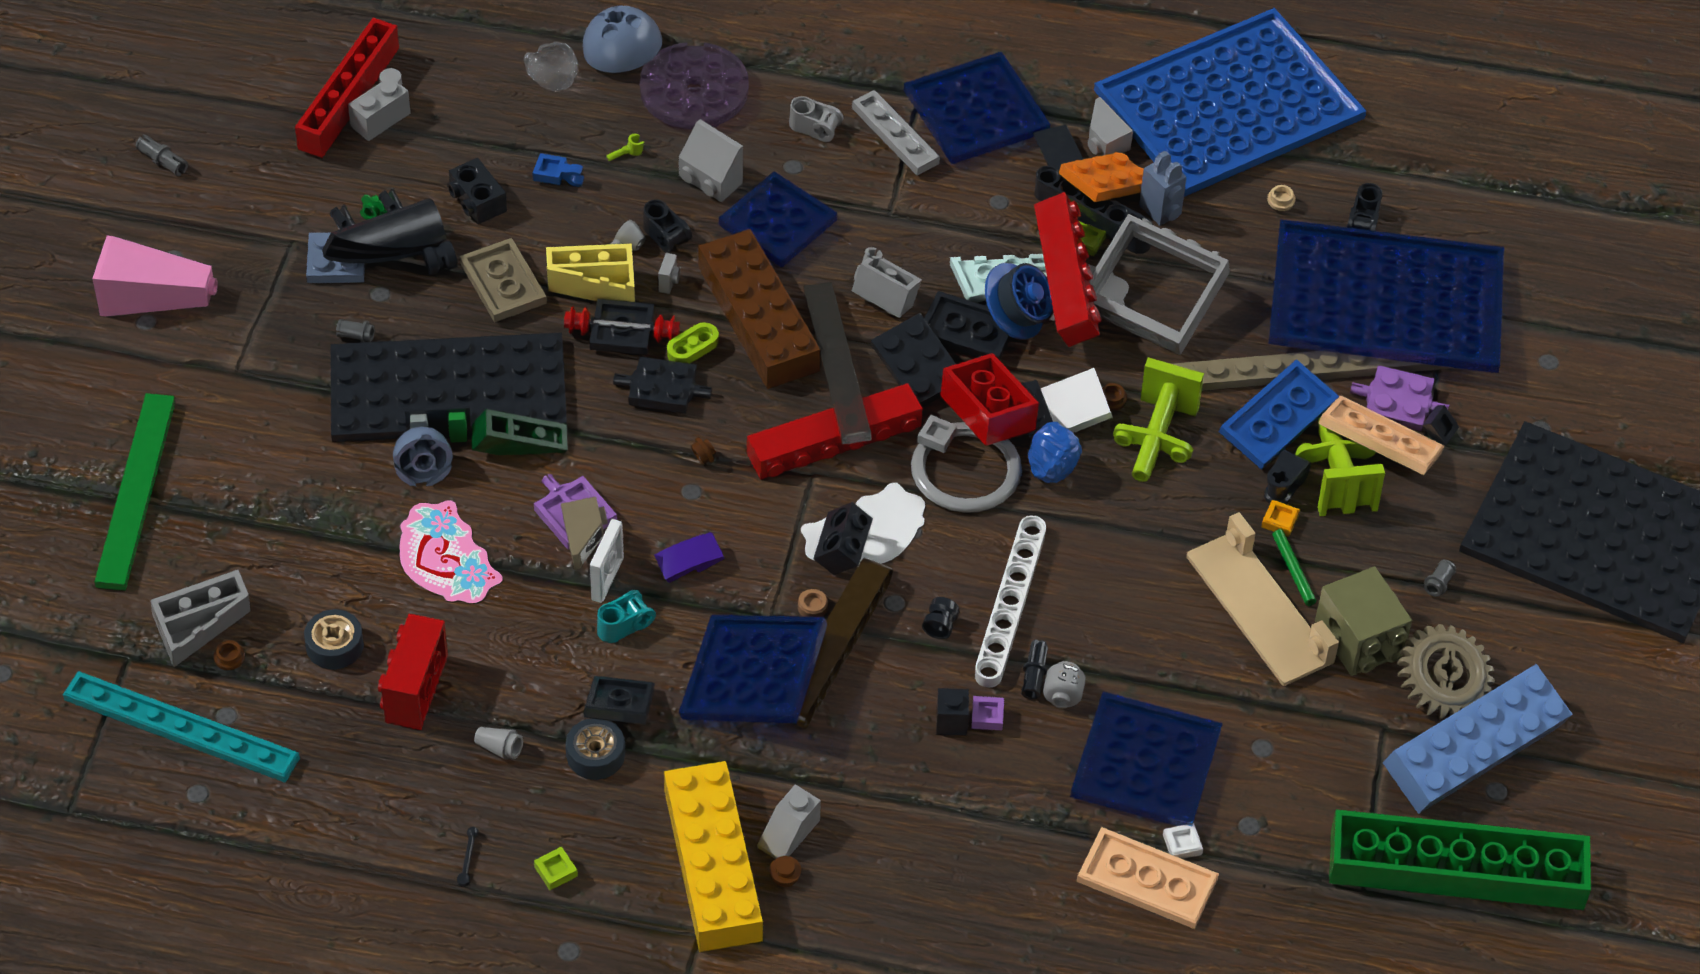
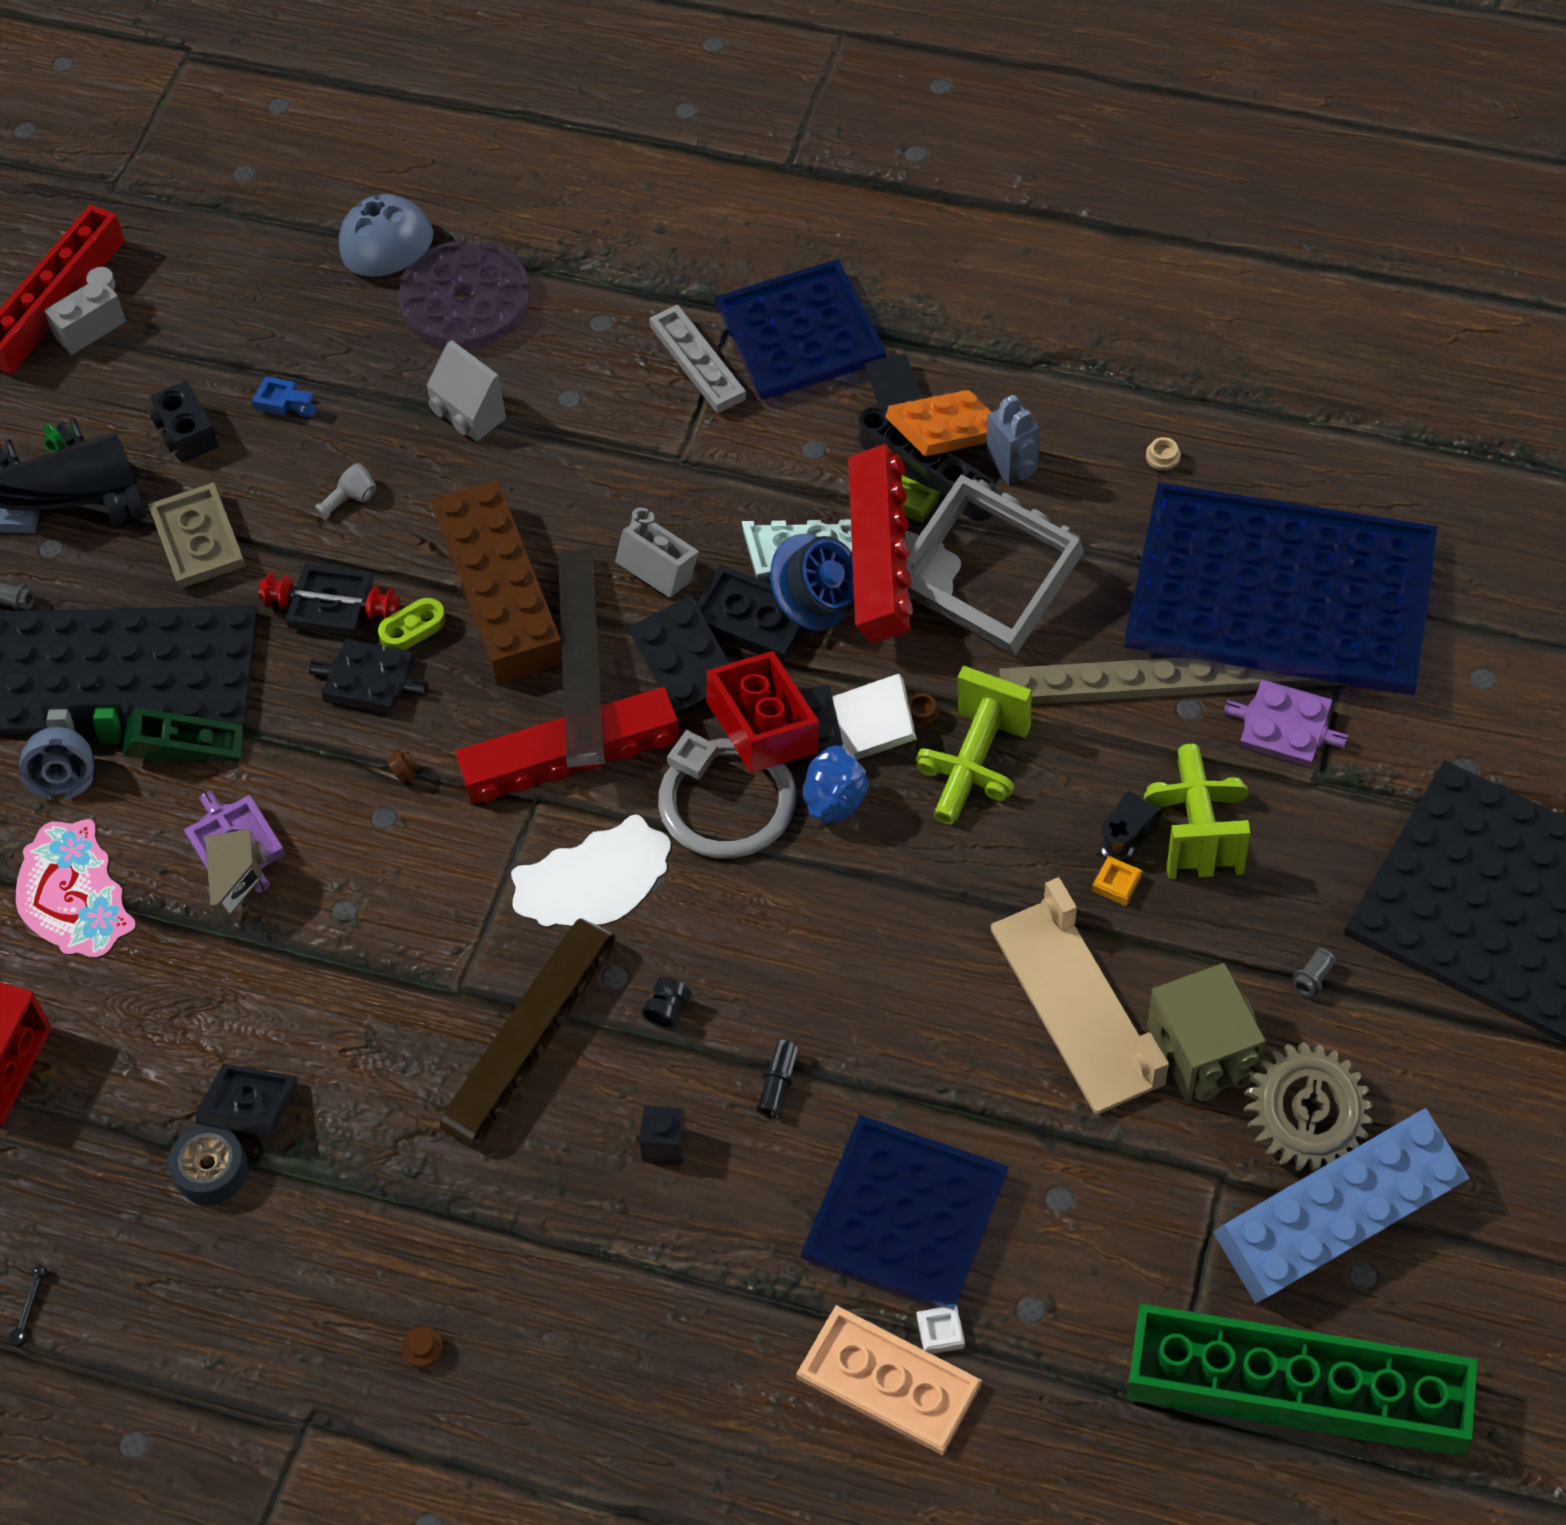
camera: 10 degrees right, 5 degrees up
(502, 742) = (92, 1150): light grey cone -> none
(552, 66) = (296, 267): clear hair -> none
(555, 868) = (131, 1329): lime plate -> none
(592, 271) = (302, 529): light yellow wedge -> none
(606, 561) = (256, 912): white tile -> none
(623, 617) = (272, 983): teal piece -> none
(632, 147) = (381, 370): lime hand -> none
(664, 225) = (400, 470): black piece -> none
(668, 273) = (395, 532): light grey plate -> none
(689, 555) = (363, 906): dark purple slope -> none
(713, 856) = (330, 1325): yellow brick -> none
(753, 668) = (417, 1066): clear blue plate -> none
(780, 218) = (540, 465): clear blue plate -> none
(790, 823) = (435, 1282): light grey slope -> none
(812, 603) = (510, 976): medium nougat tile -> none
(813, 119) = (601, 338): light grey piece -> none
(843, 538) = (555, 892): black brick -> none
(987, 713) = (709, 1137): medium lavender plate -> none
(1010, 612) = (758, 997): white beam -> none
(1064, 684) = (811, 1103): light grey head -> none
(1108, 131) = (955, 363): light grey slope -> none
(1231, 100) = (1112, 327): blue plate -> none
(1278, 414) = (1128, 741): blue plate -> none
(1294, 567) = (1127, 950): green piece -> none
(1366, 207) = (1267, 470): black piece -> none
(1381, 435) = (1256, 774): light nougat tile -> none
(1441, 425) = (1334, 763): black plate -> none

